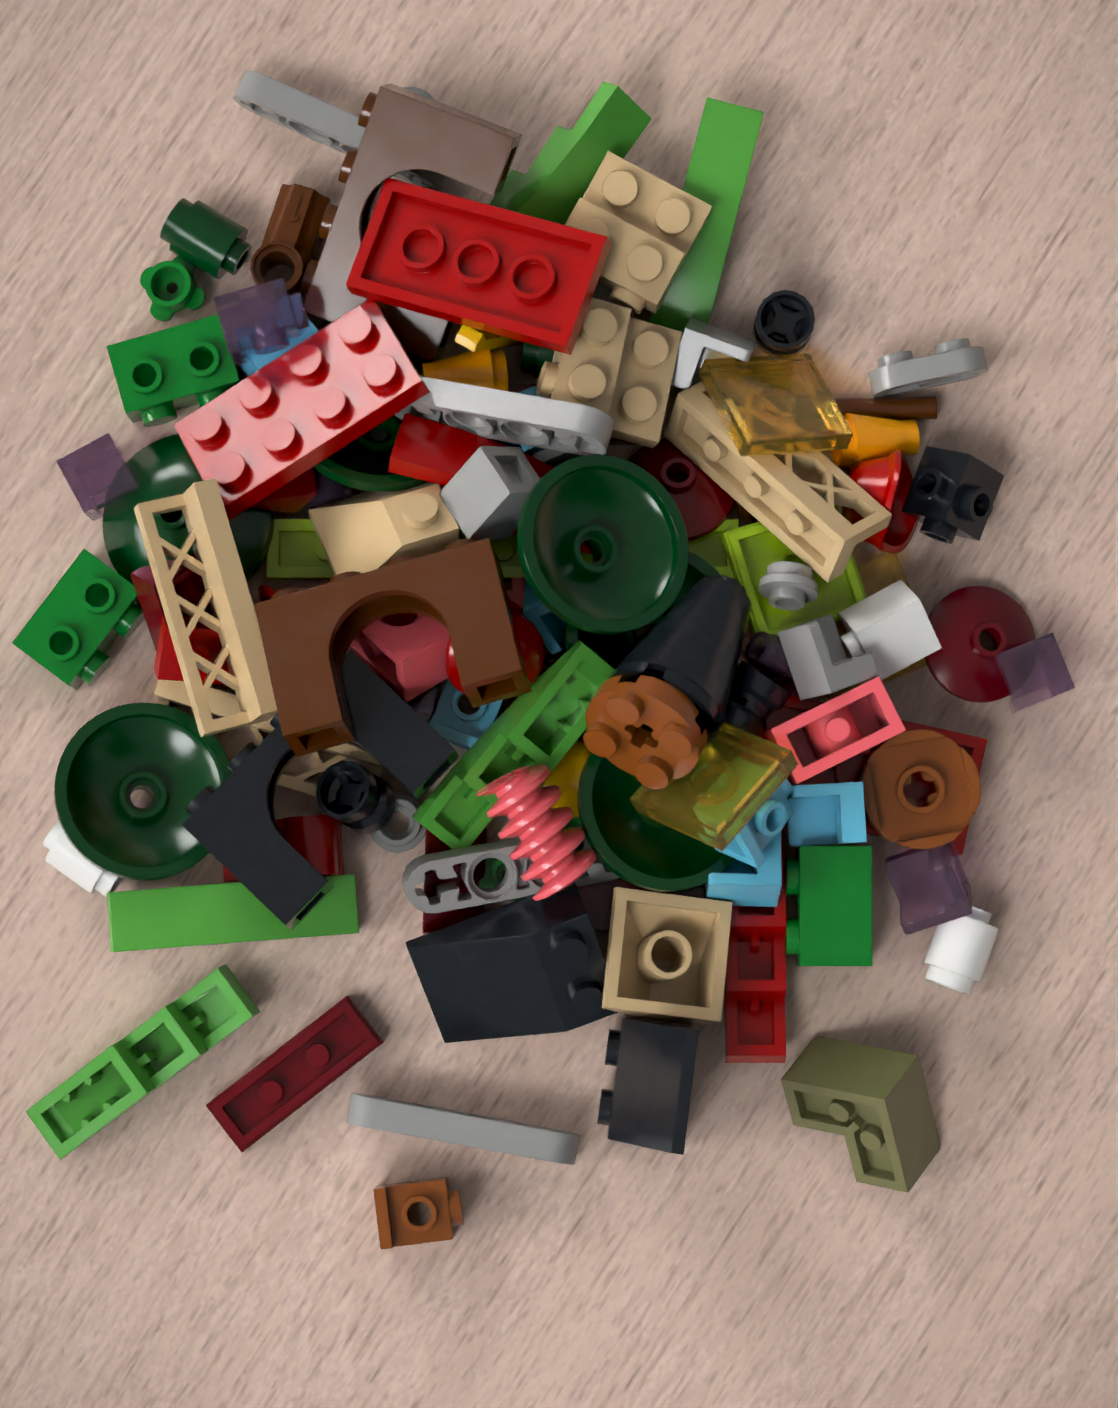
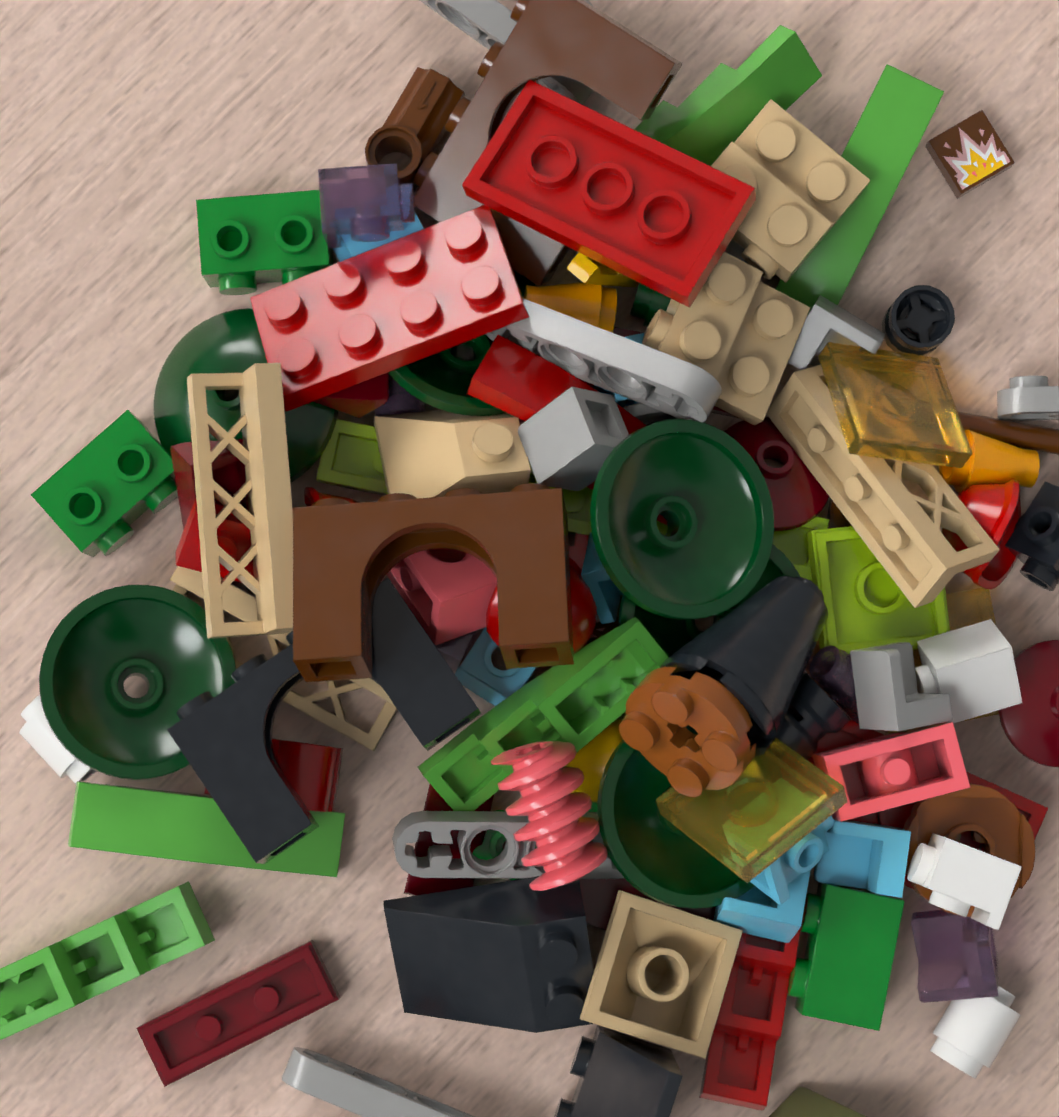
camera: 10 degrees right, 0 degrees up
(97, 475) = (158, 334): clear purple panel -> none
(160, 277) = (267, 141): green plate -> none
(206, 238) = (325, 108): dark green brick -> none
(343, 797) = (348, 729): black wheel -> none
(408, 839) = (381, 772): light grey plate -> none
(788, 585) = (871, 602): light grey plate -> none
(801, 161) = (969, 154): none -> tile
(917, 812) = (964, 878): none -> white brick

